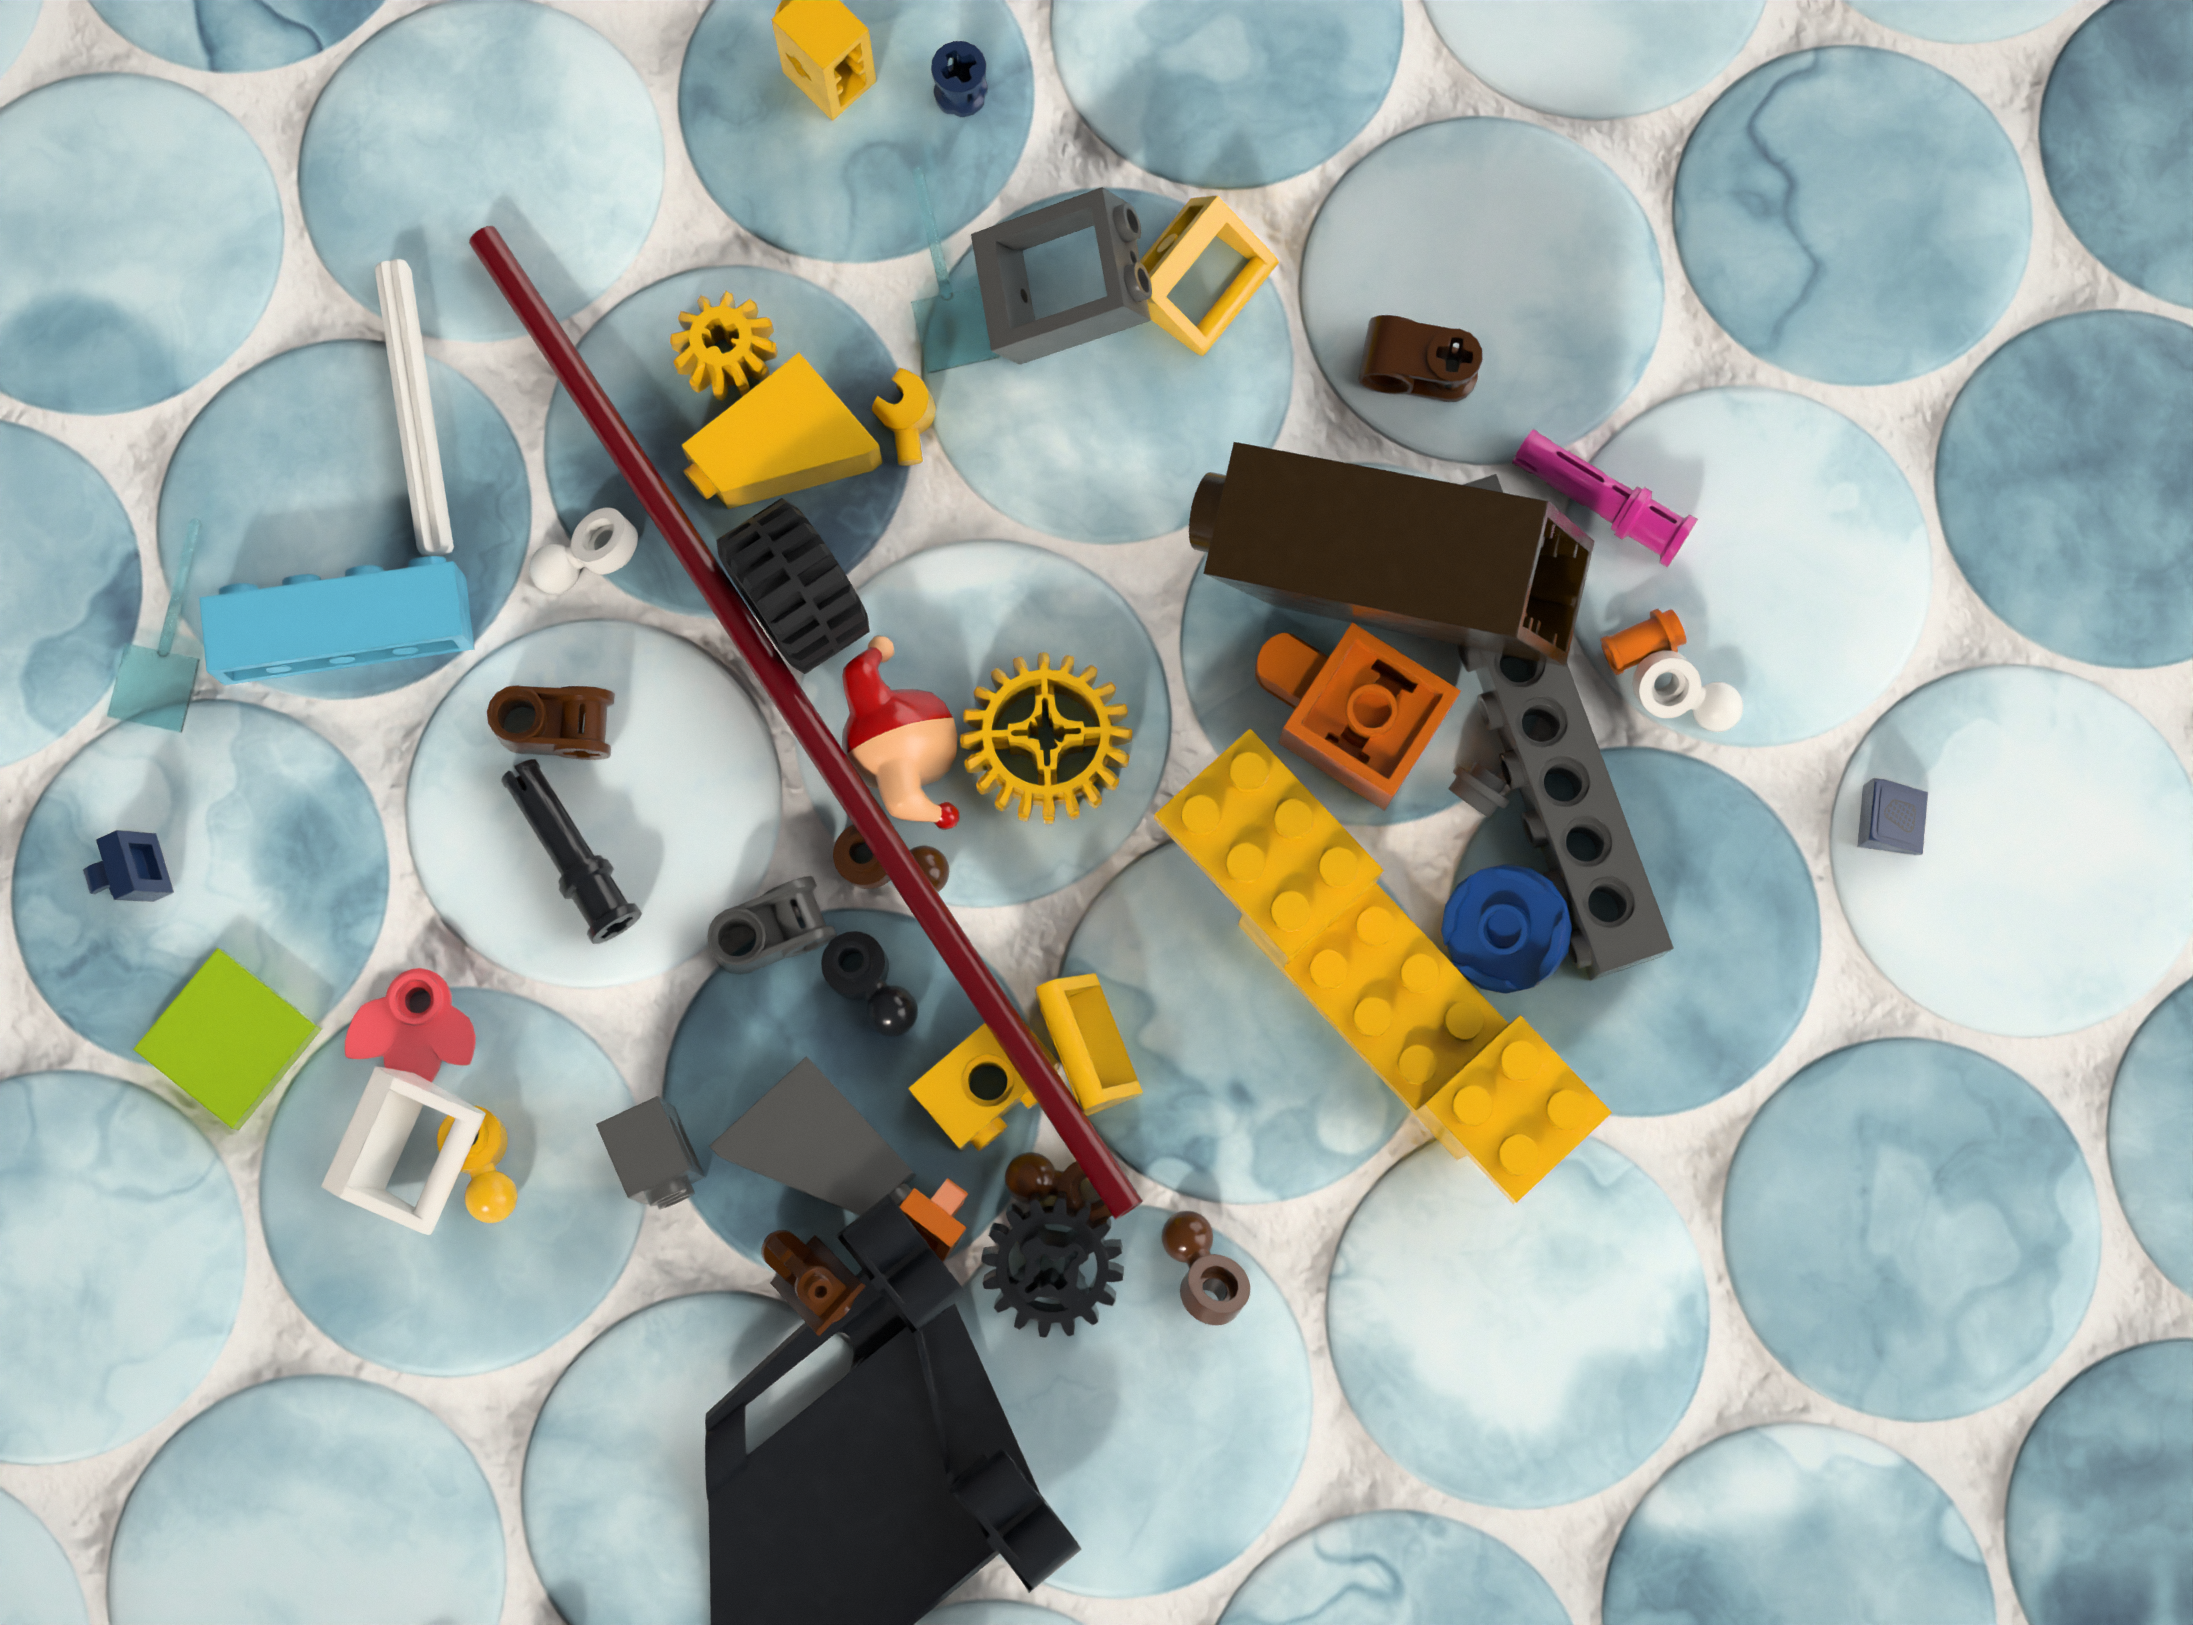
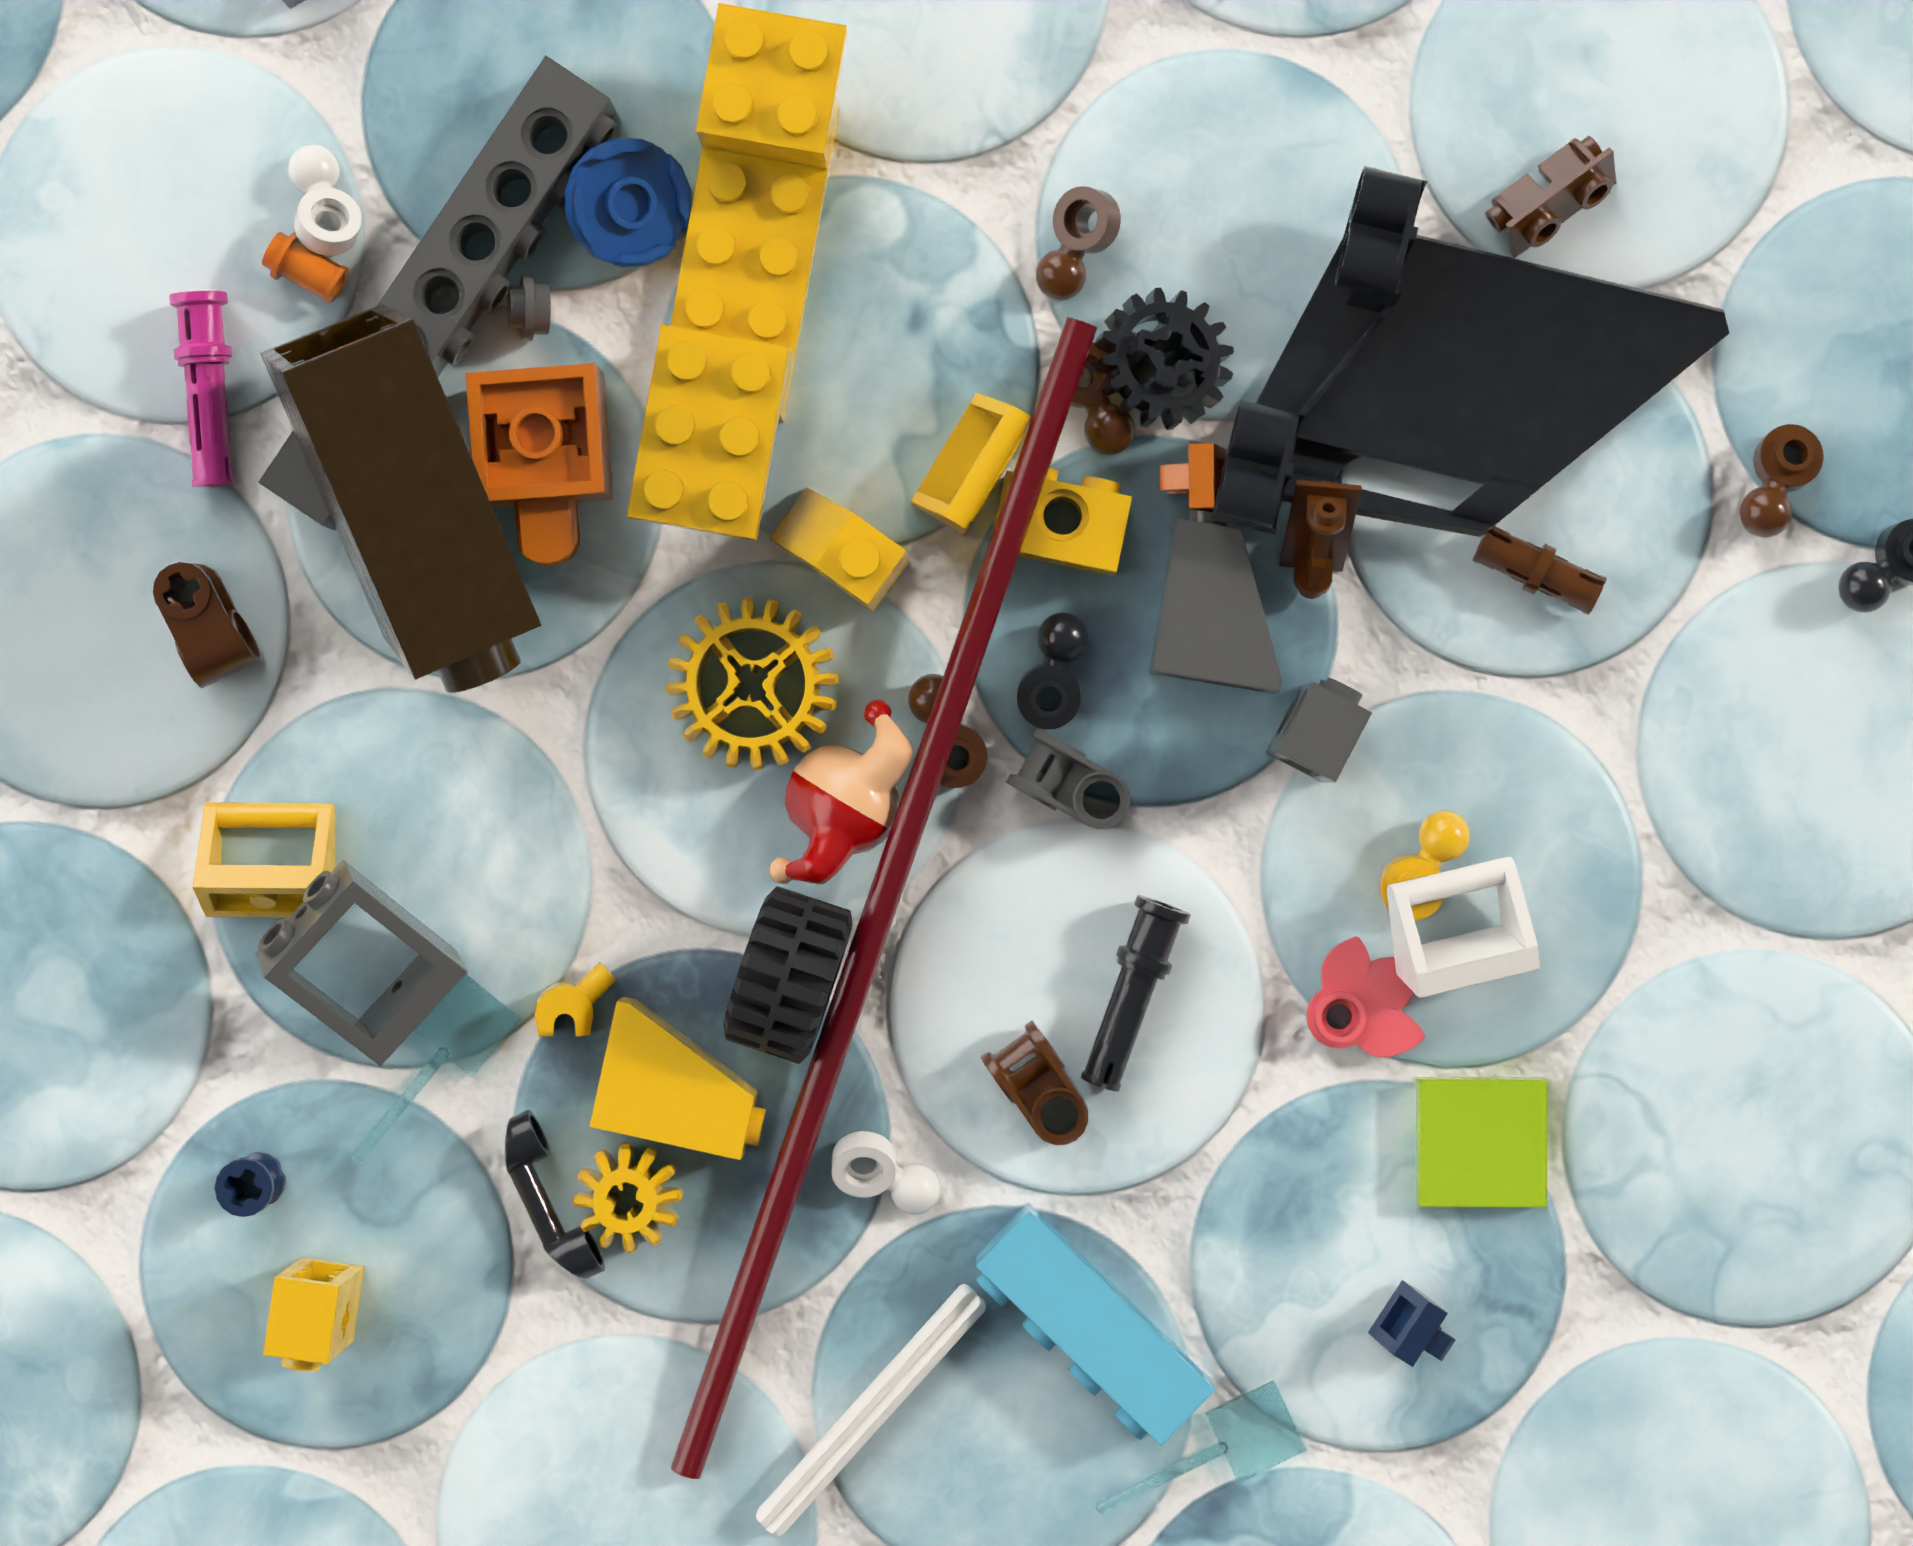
camera: 125 degrees left, 10 degrees up
(641, 1446) = (1539, 569): none -> reddish brown pin
(826, 299) = (571, 1250): none -> black bar
(1096, 882) = (841, 548): none -> yellow slope

